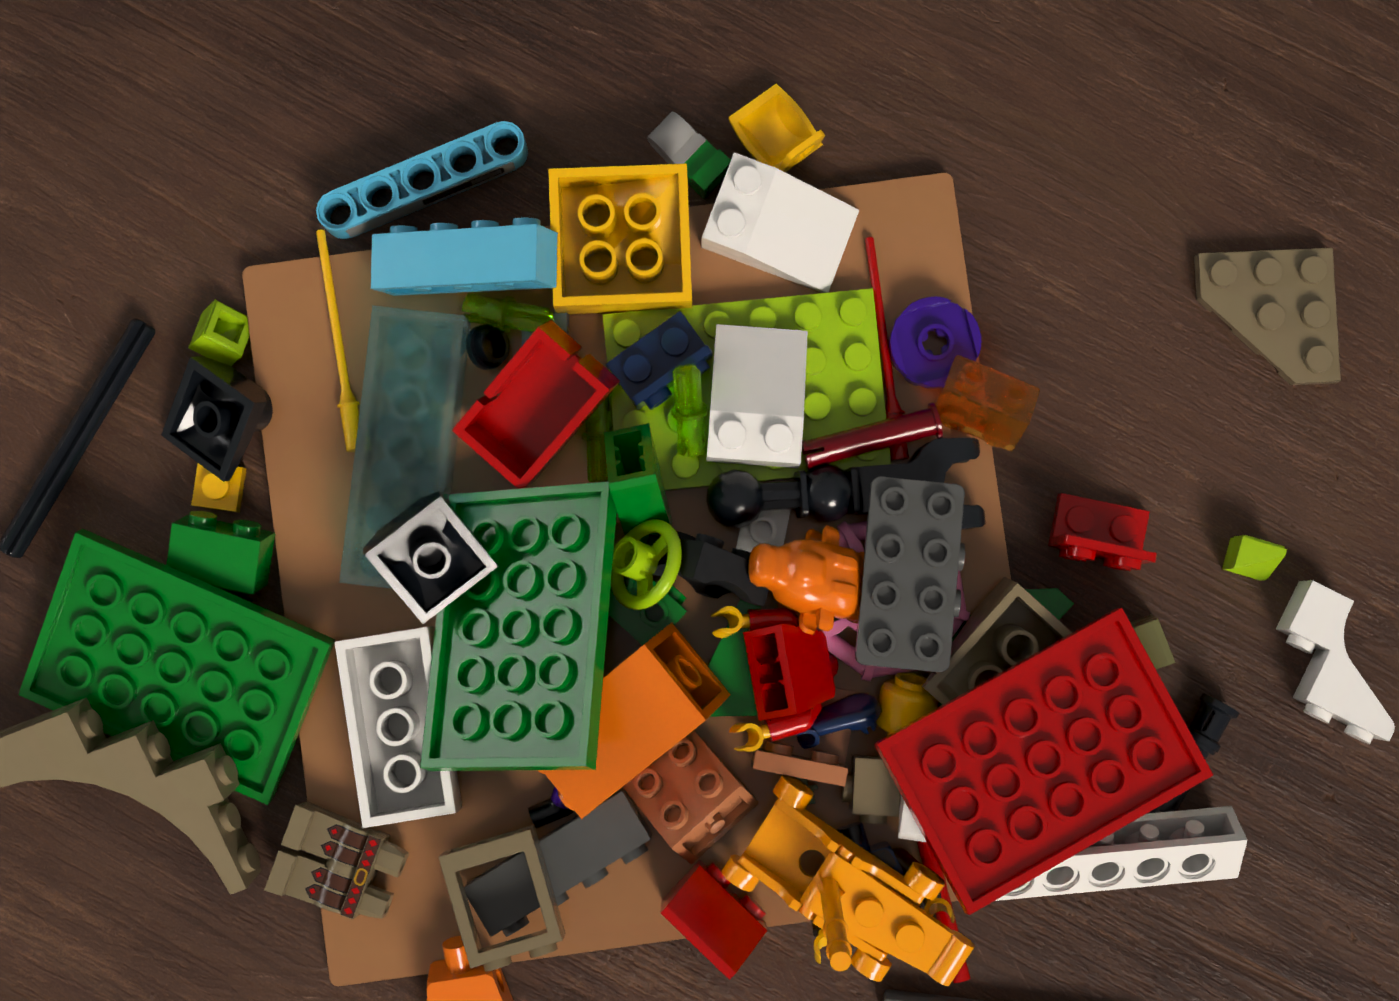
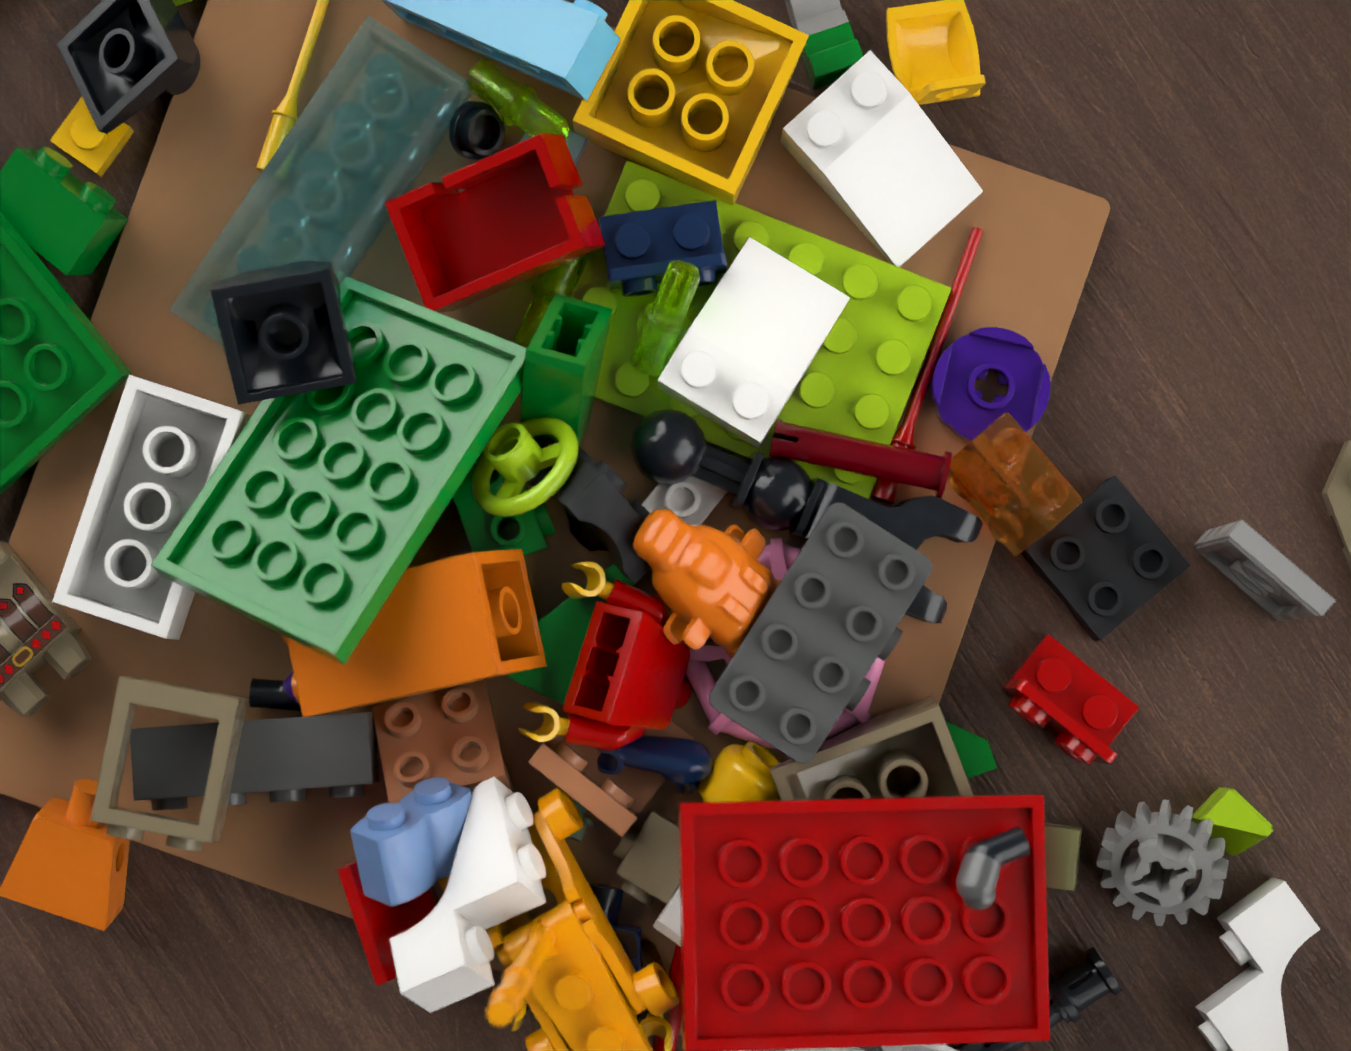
camera: 30 degrees right, 0 degrees up
(705, 864) = (410, 843): none -> medium blue brick
(771, 865) = (490, 881): none -> white arch
(1075, 421) = (1106, 559): none -> black brick
(1106, 676) = (983, 864): none -> arm
(1190, 375) = (1263, 572): none -> light grey tile
(1222, 610) = (1166, 857): none -> light grey gear

